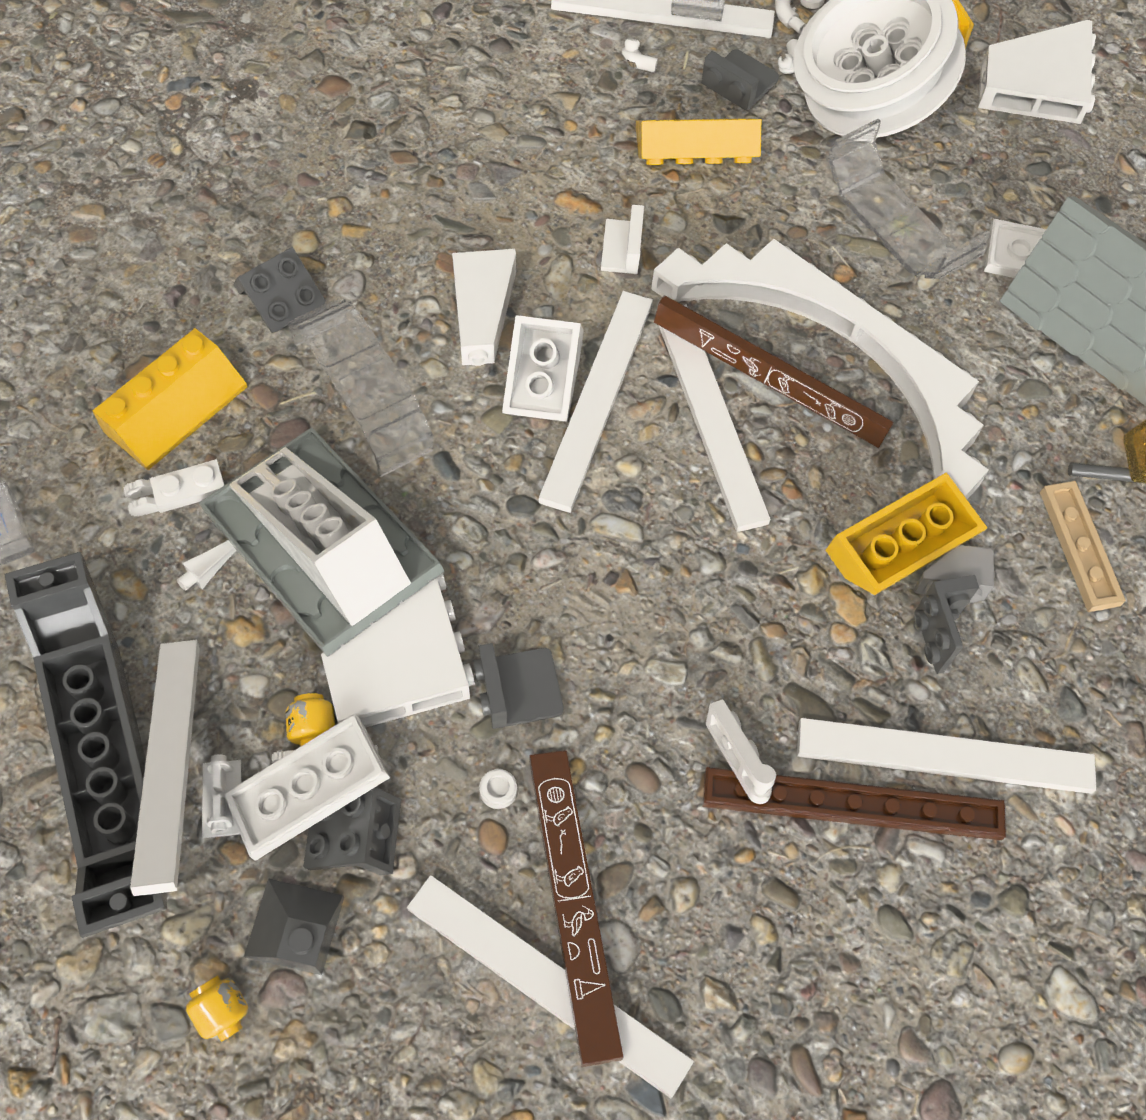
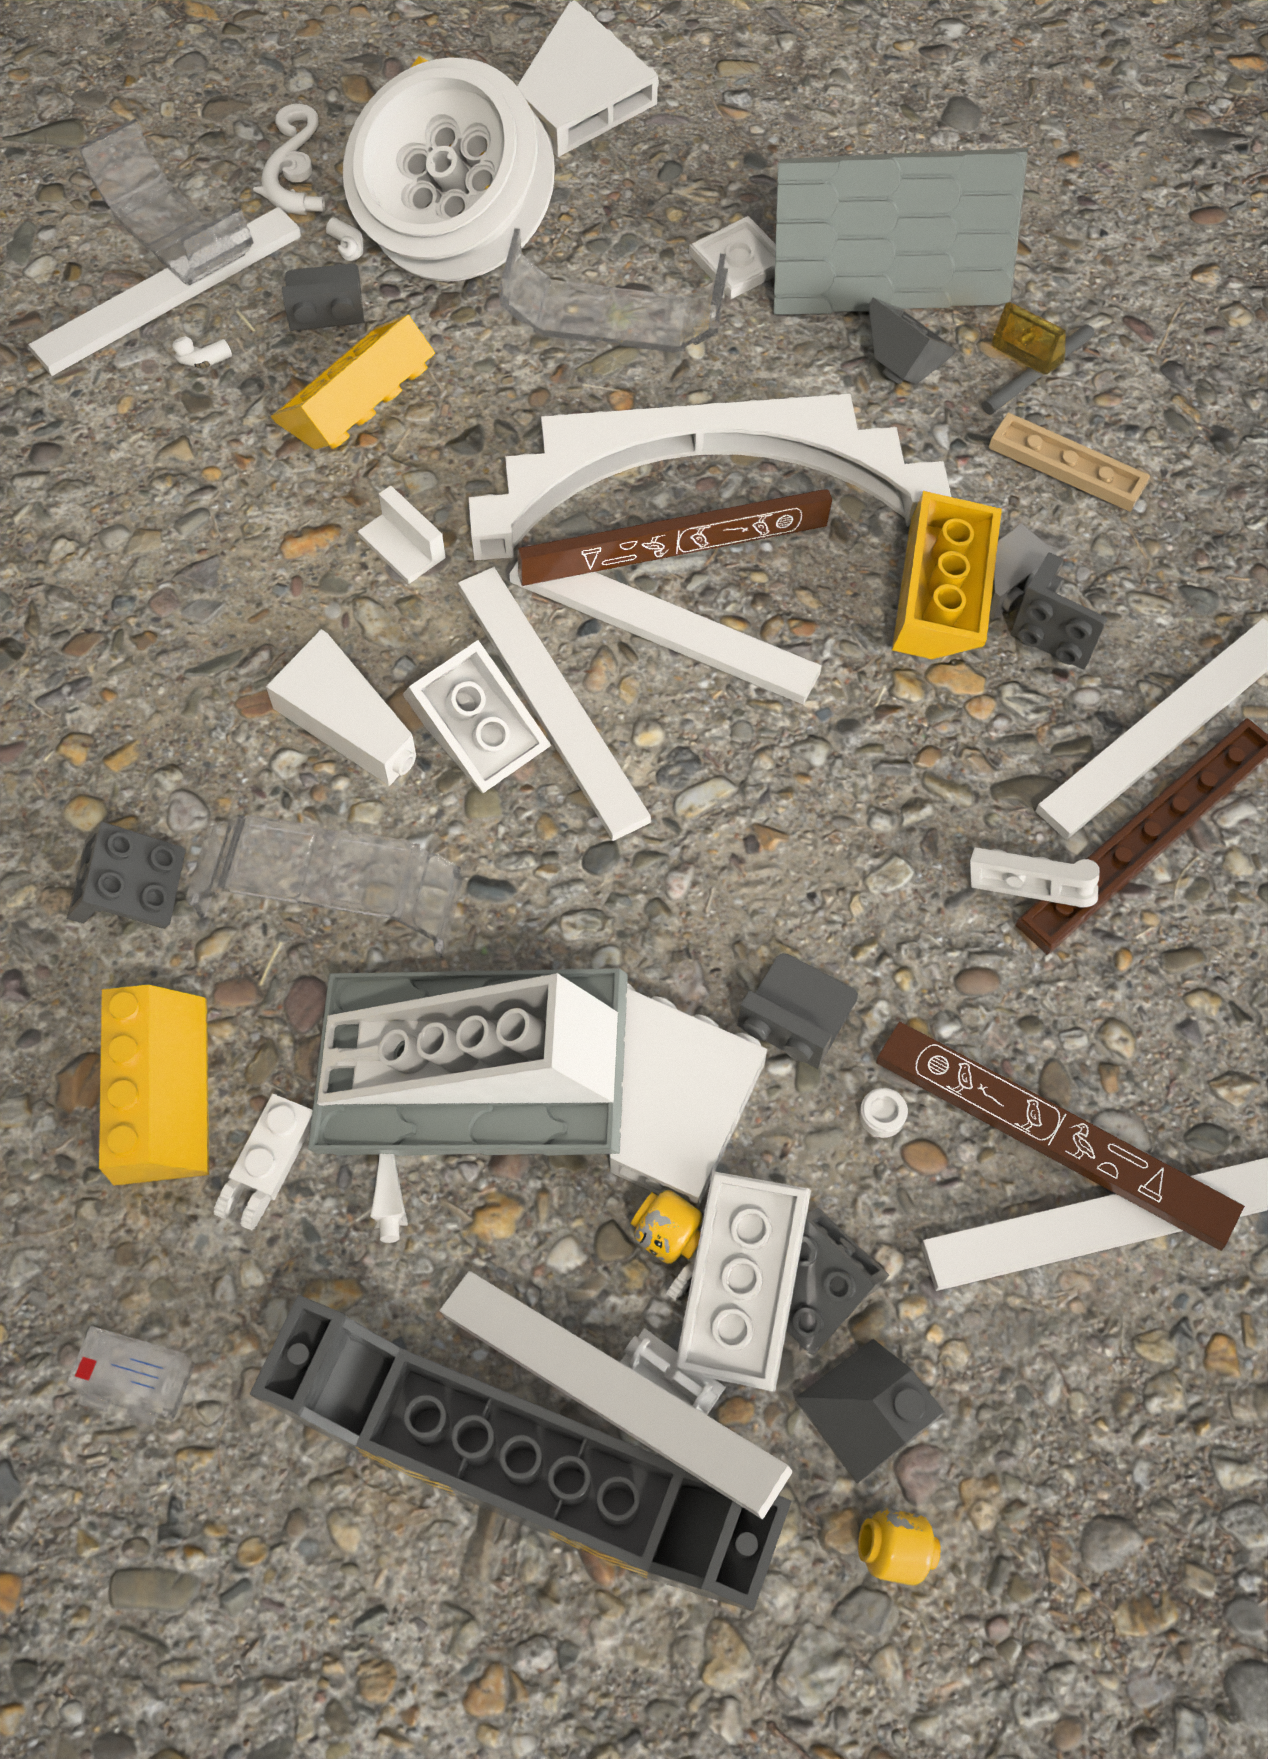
camera: 45 degrees left, 0 degrees up
(1060, 384) = (905, 344): none -> dark grey slope

